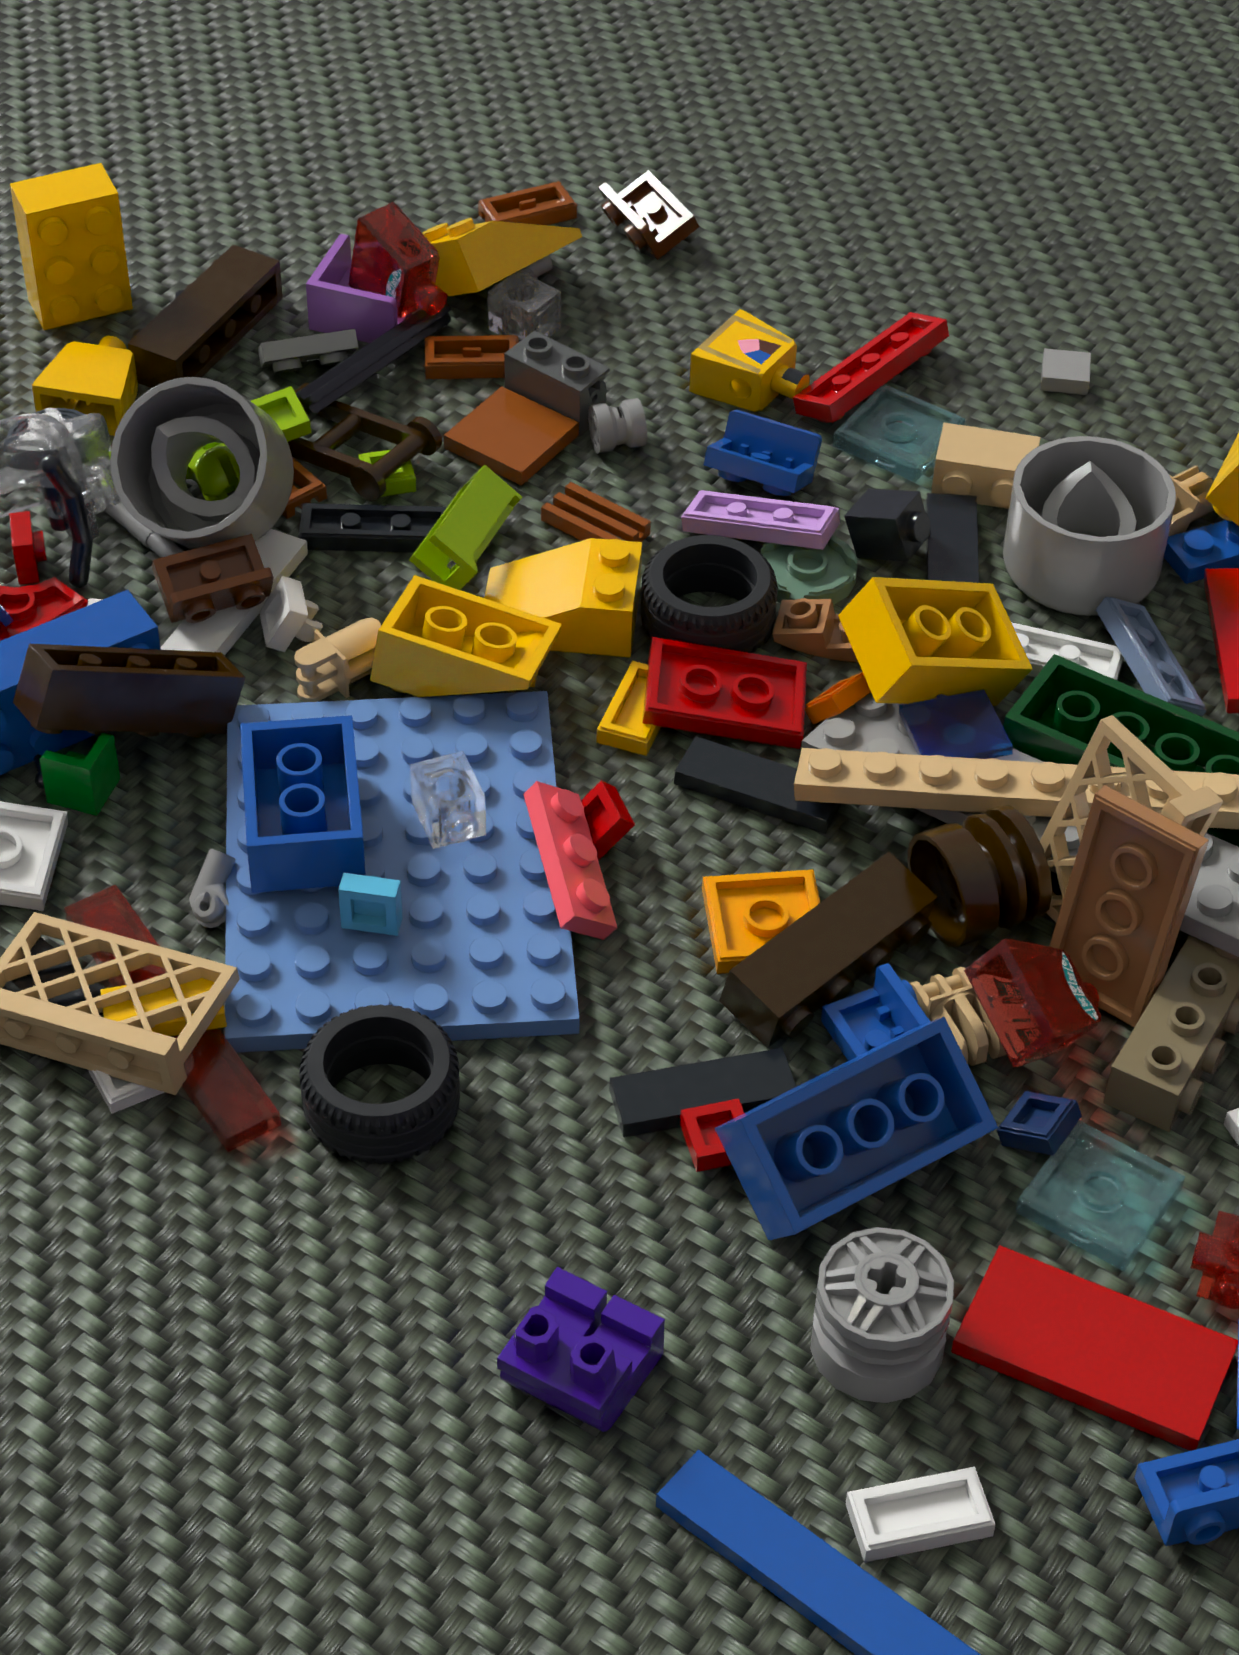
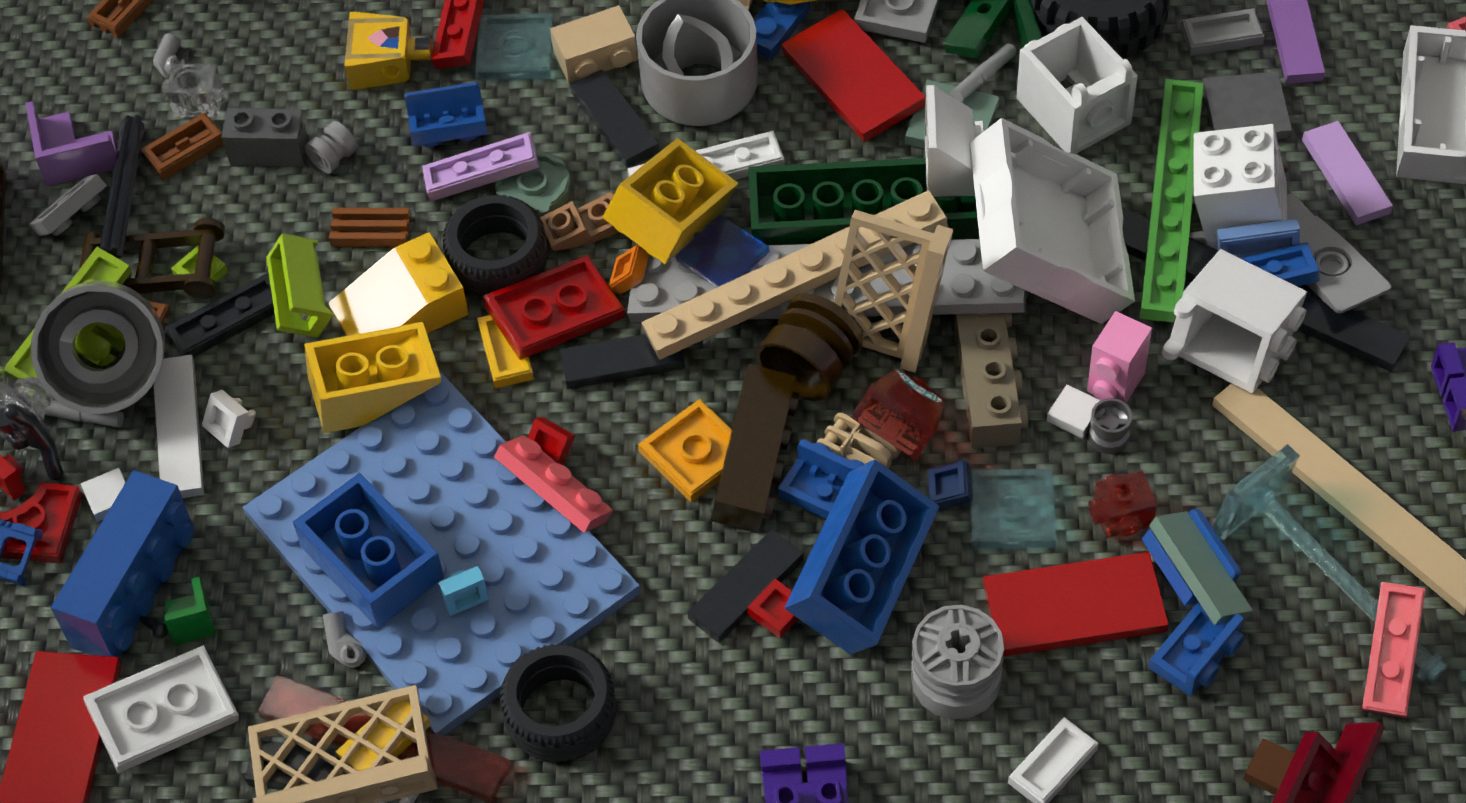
camera: 30 degrees left, 10 degrees up
(127, 690) = (187, 540): dark brown brick -> none
(212, 579) = (160, 421): reddish brown bracket -> none
(336, 660) = (290, 429): tan arm -> none
(396, 261) = (88, 107): clear red torso -> none
(448, 799) = (449, 476): clear brick -> none
(490, 251) = (138, 65): yellow slope -> none
(511, 435) = (261, 193): dark orange tile -> none
(888, 524) = (568, 125): black brick -> none
(1127, 900) = (922, 320): medium nougat tile -> none
(1148, 654) = (794, 129): sand blue tile -> none

